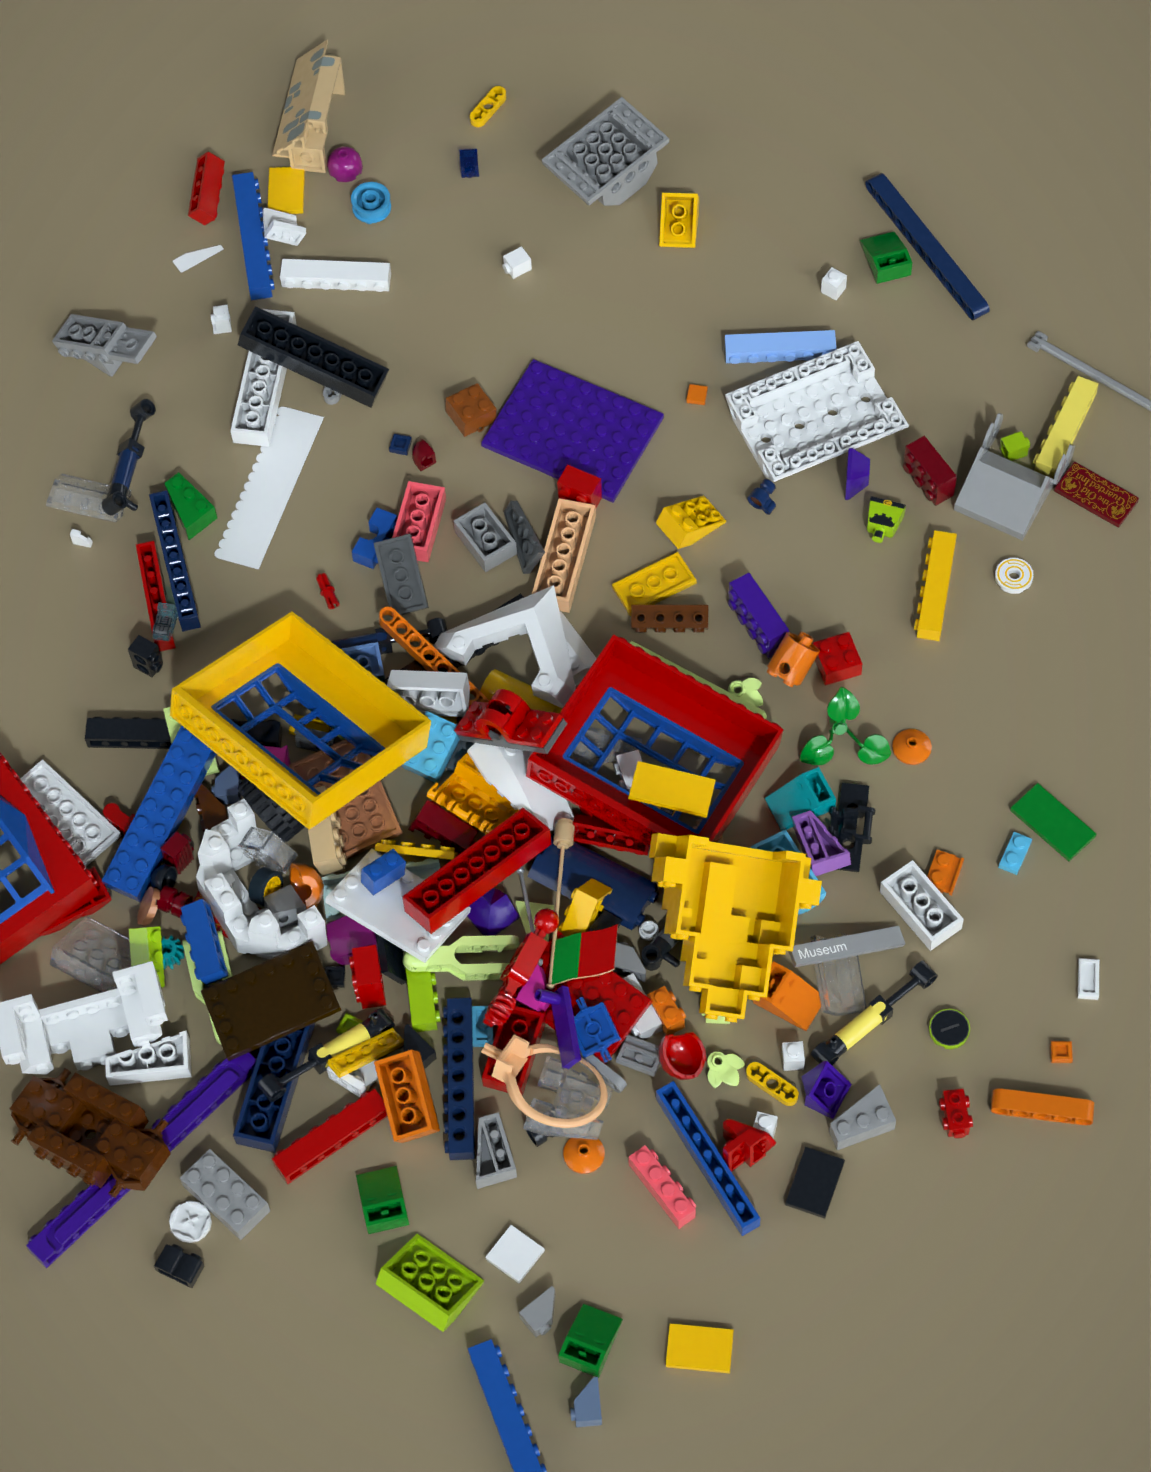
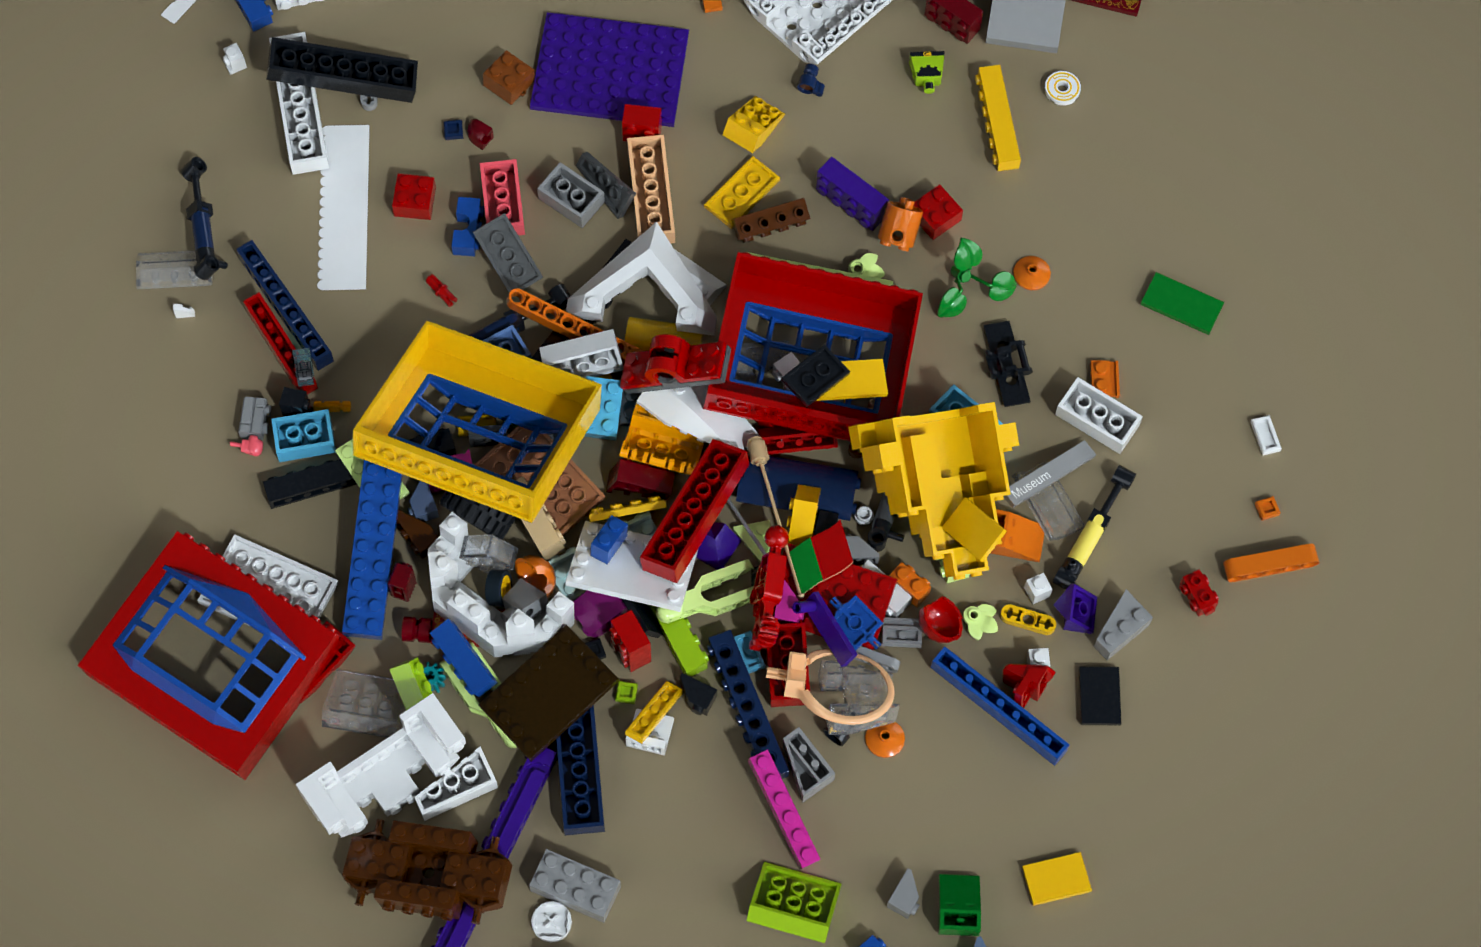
camera: 25 degrees left, 5 degrees up
(91, 682) = (250, 446): none -> coral piece
(102, 342) = (130, 113): light grey wedge -> none
(104, 657) = (254, 417): none -> light grey brick
(117, 817) = (333, 568): red leg -> none
(142, 686) = (303, 435): none -> medium azure brick
(148, 906) = (394, 641): nougat tile -> none
(164, 875) = (396, 610): black piece -> none
(180, 668) = (333, 406): none -> light orange axle
(190, 505) = (277, 247): green wedge -> none
(318, 1056) = (615, 728): black piece -> none
(330, 1136) = (651, 799): red brick -> none
(336, 495) = (414, 196): none -> red brick
(382, 1200) = (722, 841): green slope -> none
(407, 1096) = (709, 739): orange brick -> none
(452, 1187) = (783, 809): none -> dark pink brick
(515, 1254) = (860, 850): white tile -> none
(640, 775) = (815, 375): none -> black tile
(662, 1187) = (969, 745): coral brick -> none
(742, 974) = (974, 529): none -> yellow tile
(799, 796) = (955, 352): teal slope -> none
(819, 844) = (987, 387): medium lavender wedge -> none
(857, 473) = (887, 34): dark purple slope -> none
(949, 1028) = (1163, 519): black tile -> none
(1015, 853) = (1160, 342): medium azure plate -> none

